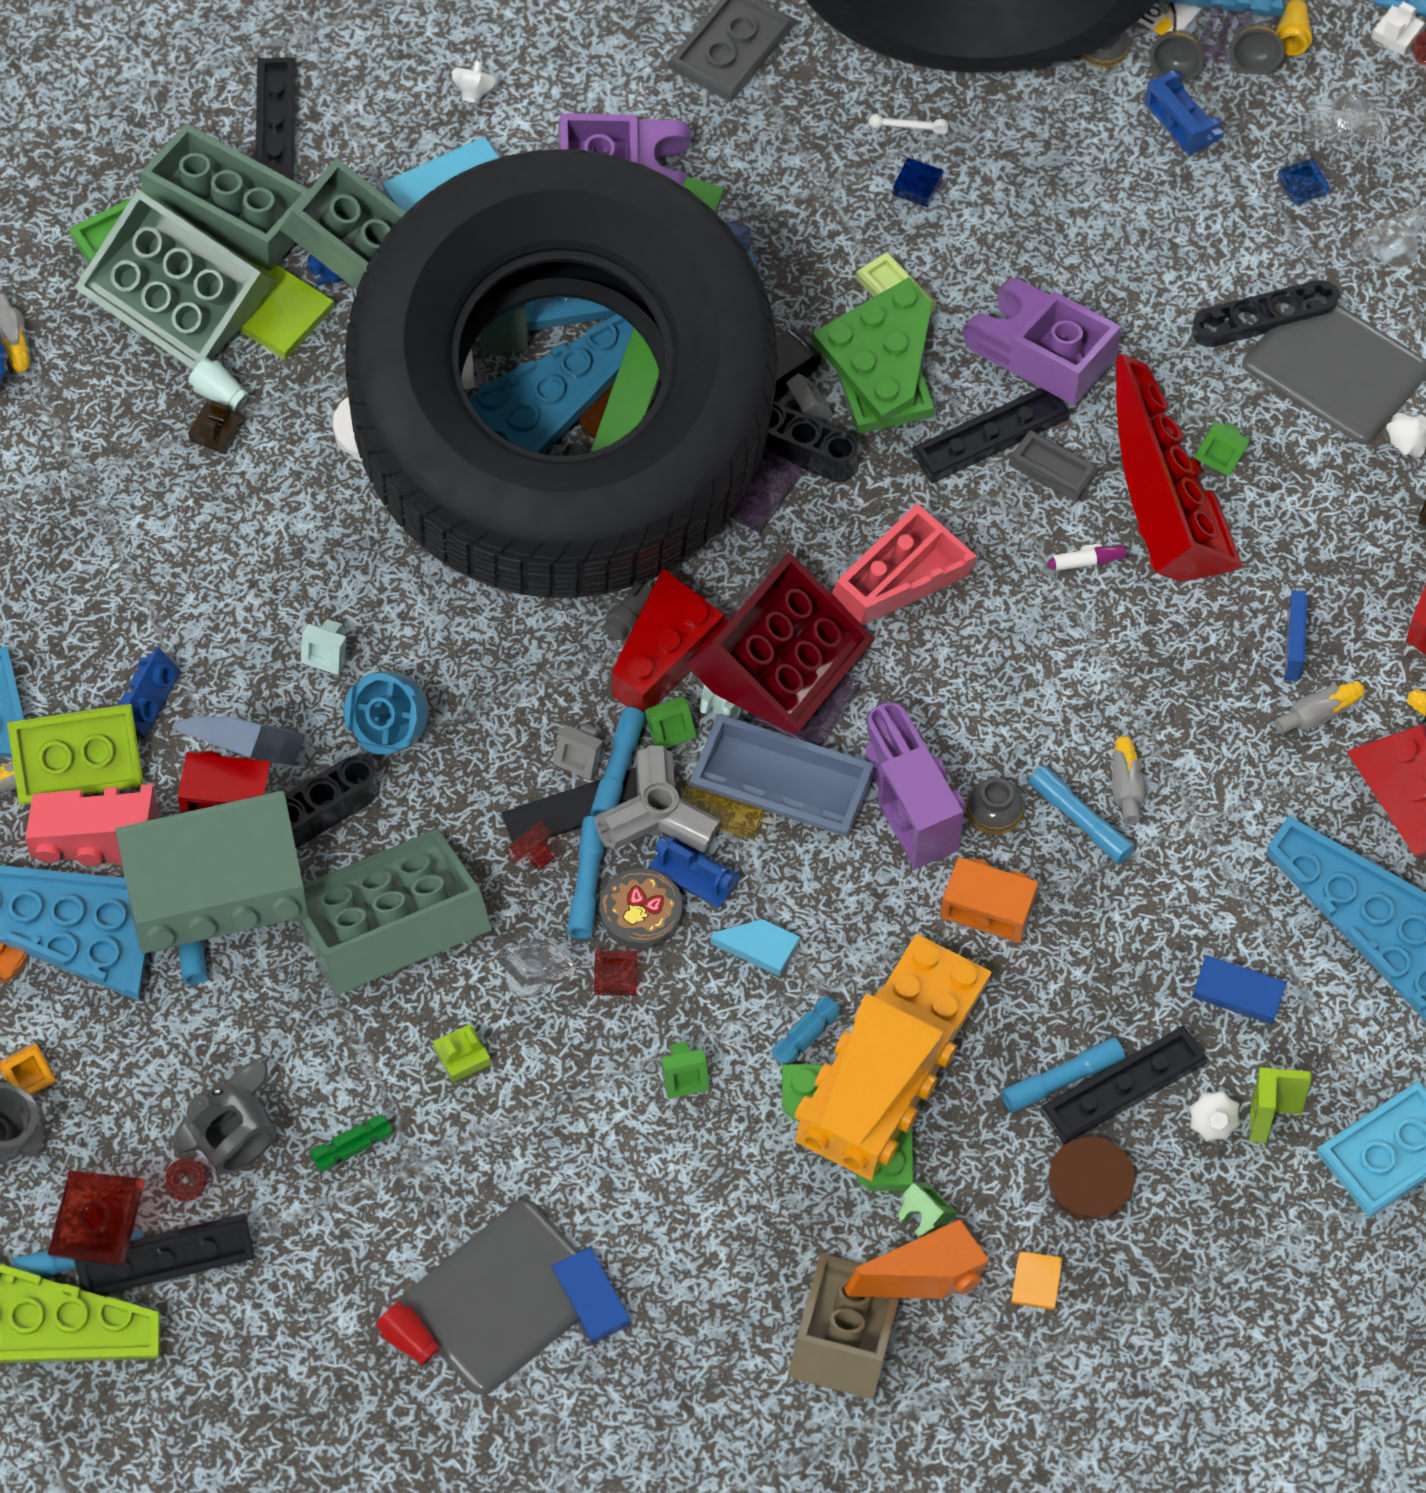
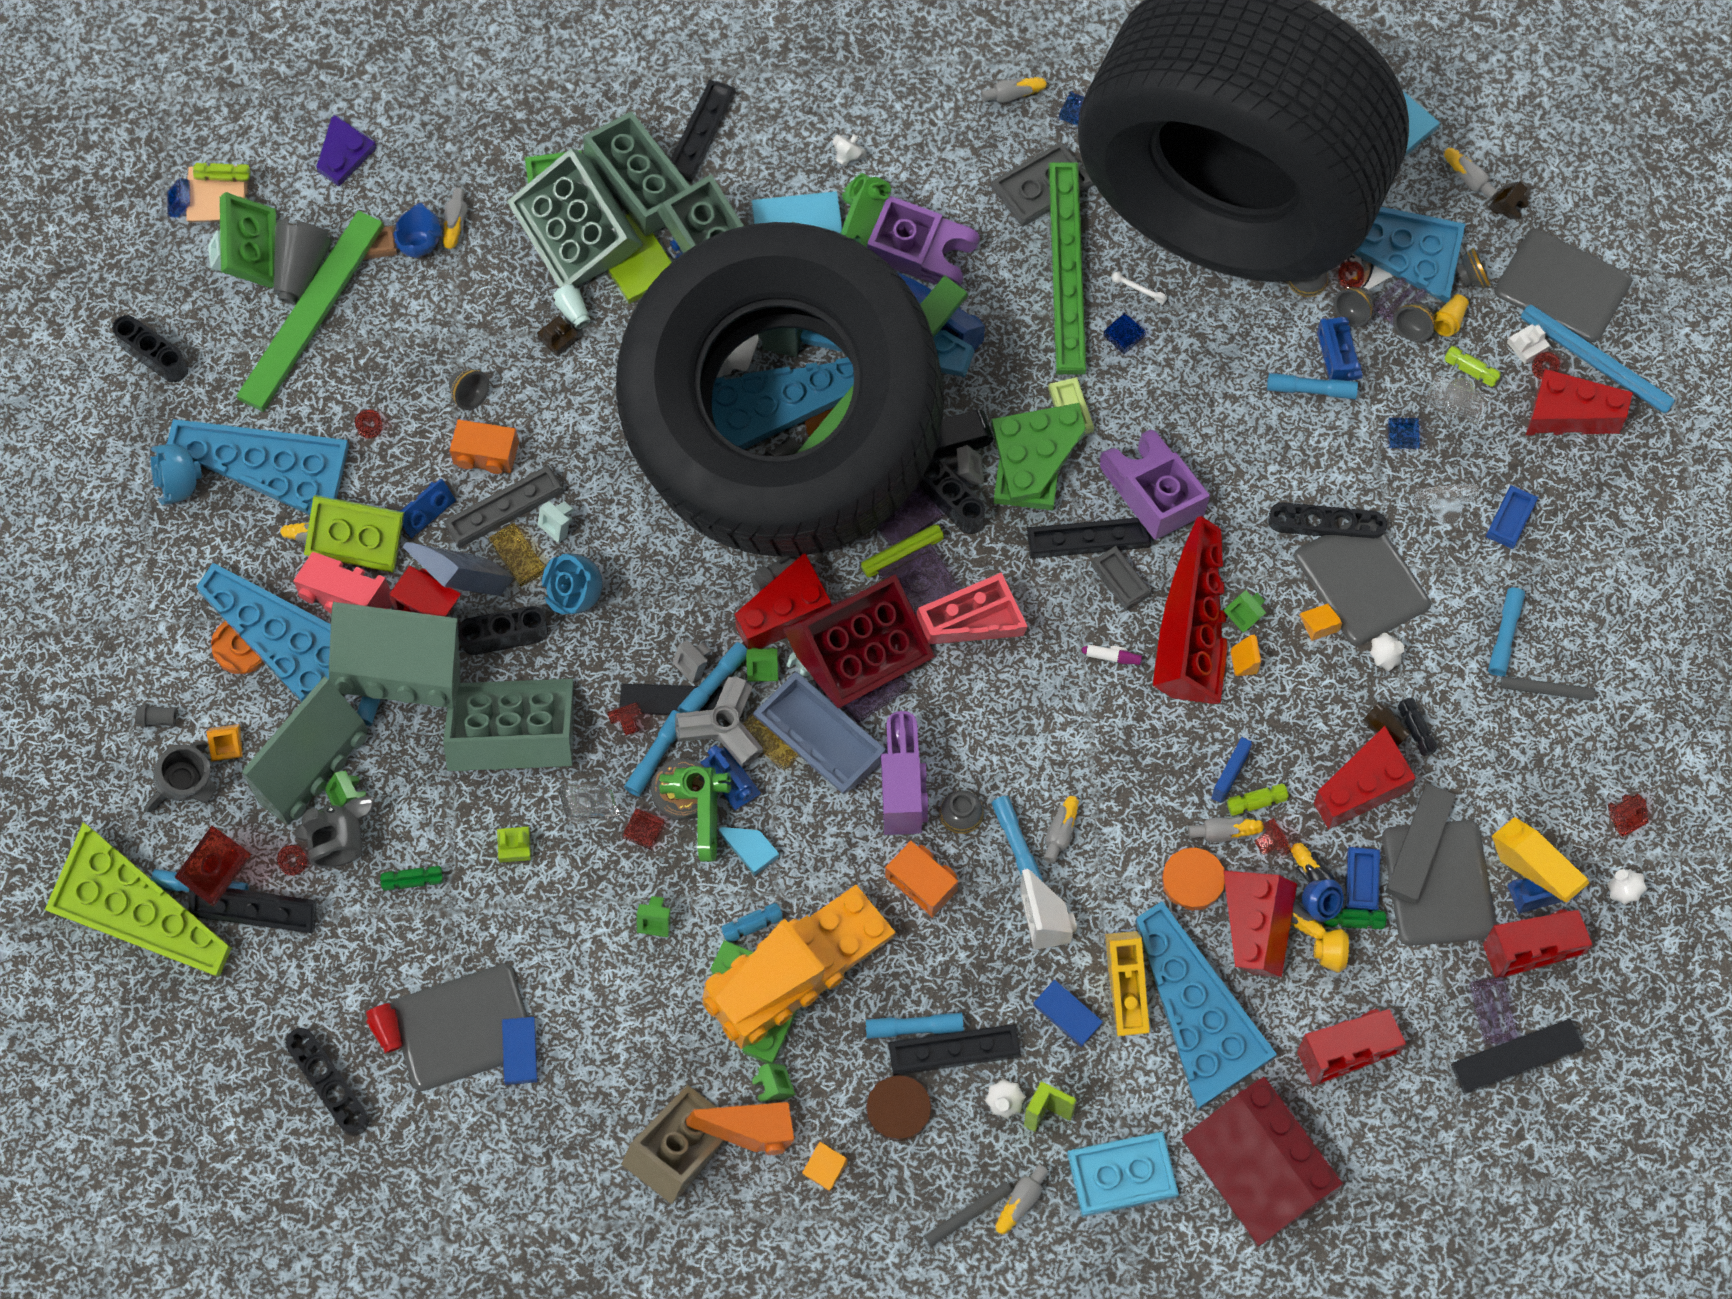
camera: 25 degrees right, 5 degrees up
(28, 627) = (368, 415): none -> clear red bush
(134, 528) = (469, 388): none -> dark grey piece
(149, 1038) = (305, 752): none -> sand green slope
(189, 591) = (484, 446): none -> orange brick
(210, 1068) = (341, 788): none -> bright green tile
(247, 655) = (503, 506): none -> dark grey tile
(293, 707) = (517, 554): none -> clear yellow tile
(367, 1424) = (329, 1080): none -> black beam
(529, 124) = (866, 199): none -> bright green piece
(642, 899) = (681, 785): none -> bright green piece
(773, 528) = (902, 549): none -> lime axle
(812, 130) = (1067, 268): none -> bright green tile
(817, 546) = (921, 577): none -> clear purple tile
(1148, 170) = (1293, 384): none -> dark azure piece
(1155, 12) = (1350, 267): none -> clear red bush
(1156, 881) = (1045, 913): none -> white slope
(1234, 1268) = (967, 1213): none -> dark grey bar
(1248, 500) = (1246, 656): none -> light orange slope
(1291, 1224) = (1021, 1199): none -> light grey piece
(1293, 923) = (1127, 982): none -> yellow slope
(1310, 778) = (1193, 878): none -> orange tile
(1314, 430) = (1321, 621): none -> light orange slope
(1340, 659) = (1257, 799): none -> lime axle
(1346, 77) = (1472, 366): none -> lime axle
(1383, 696) = (1273, 839): none -> clear red tile

